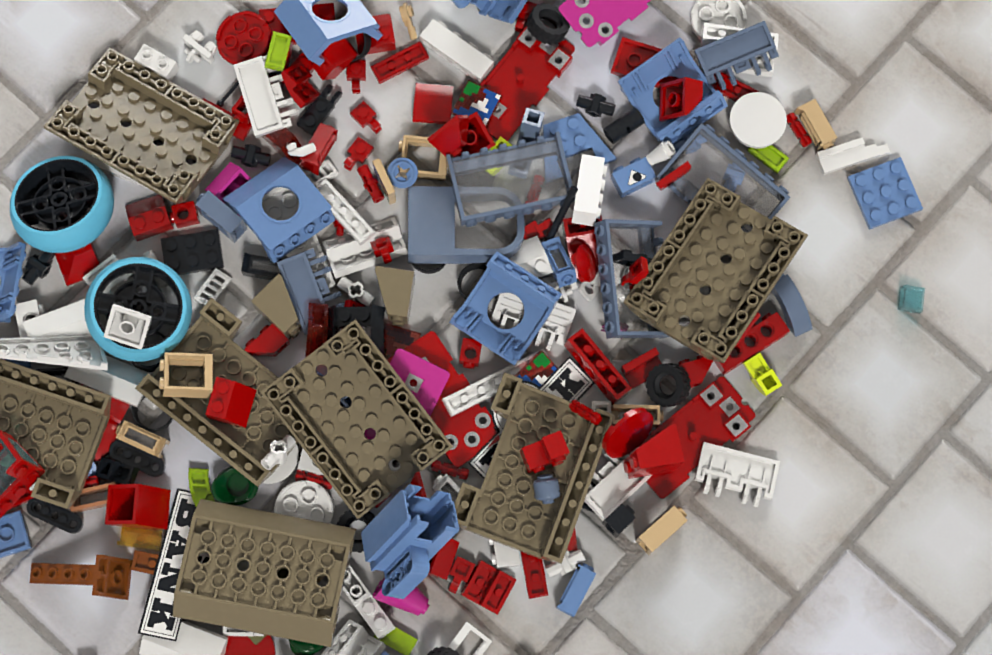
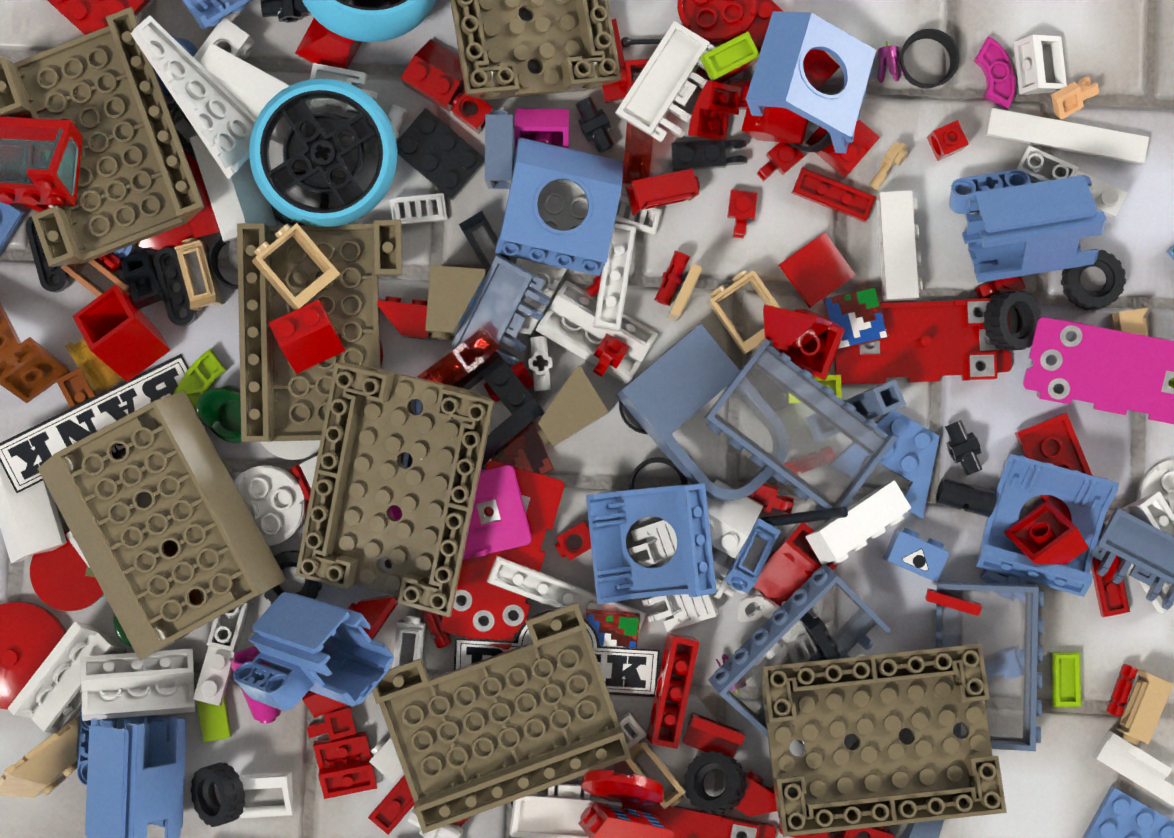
camera: 55 degrees right, 10 degrees up
(127, 326) = (286, 161): white slope -> none
(278, 452) = (282, 432): white axle -> none
(301, 151) = (639, 178): white arm -> none
(359, 152) = (697, 236): red plate -> none
(393, 170) = (698, 310): medium blue gear -> none
(546, 488) = (490, 750): sand blue head -> none
(549, 450) = (528, 718): red brick -> none
(585, 263) = (773, 587): red dish -> none
(585, 412) = (607, 724): red axle -> none
(636, 273) = (807, 657): red plate -> none
(662, 152) = (968, 567): white cone -> none
(757, 120) = (1095, 639): white tile -> none

